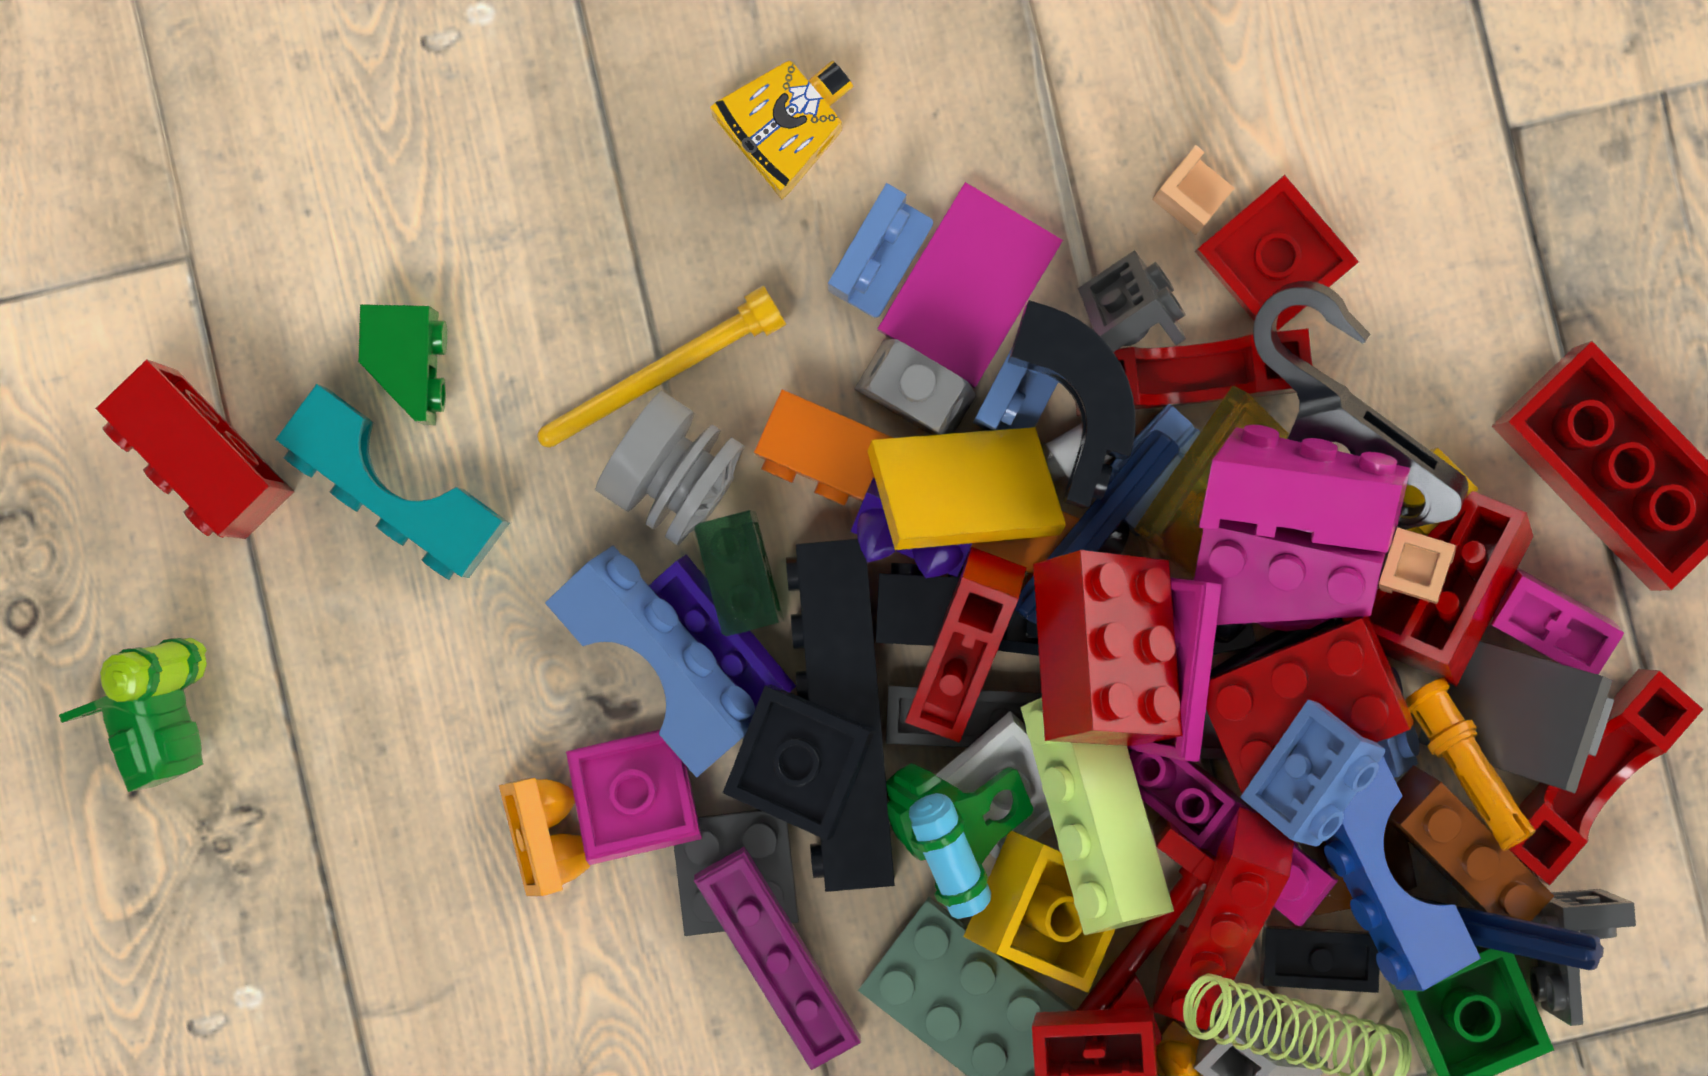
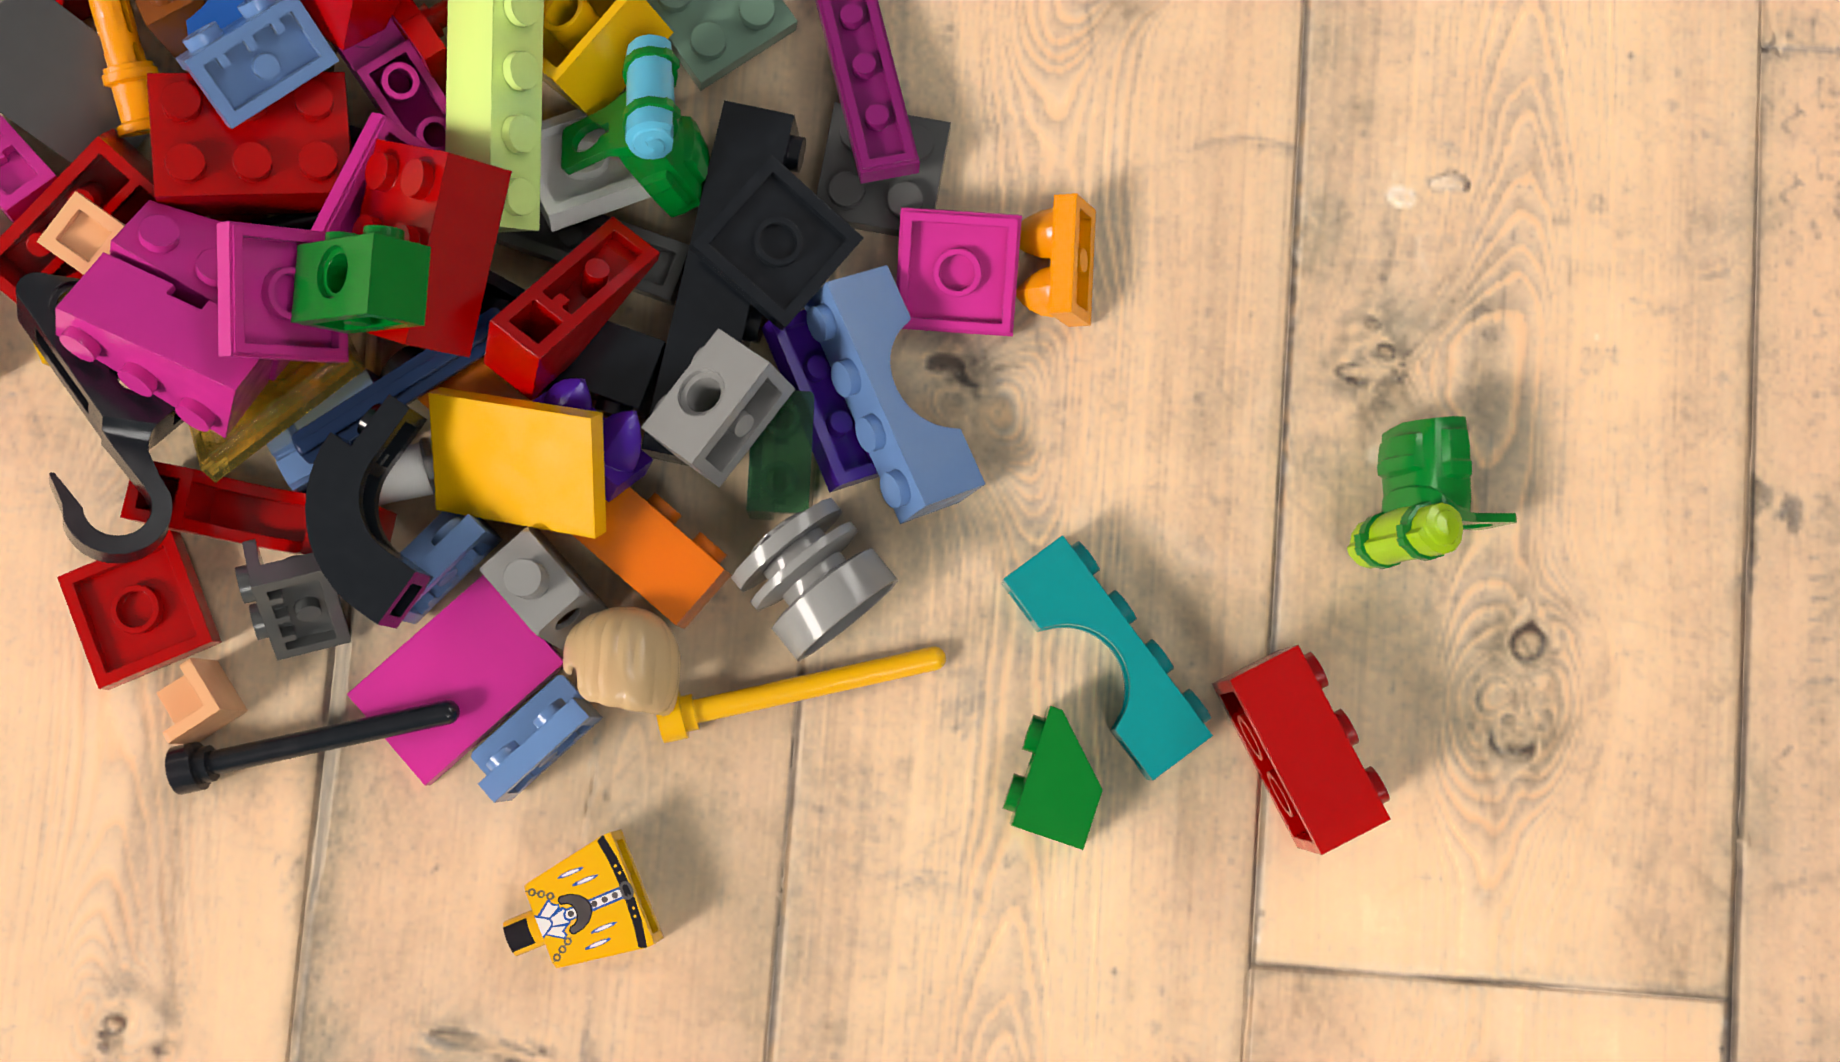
camera: 160 degrees left, 5 degrees down
(772, 605) = (746, 398): none -> light grey brick
(815, 343) = (625, 660): none -> tan piece
(1132, 588) = (361, 281): none -> green brick
(1174, 135) = (195, 766): none -> black piece
(1204, 560) = (257, 297): none -> dark pink tile

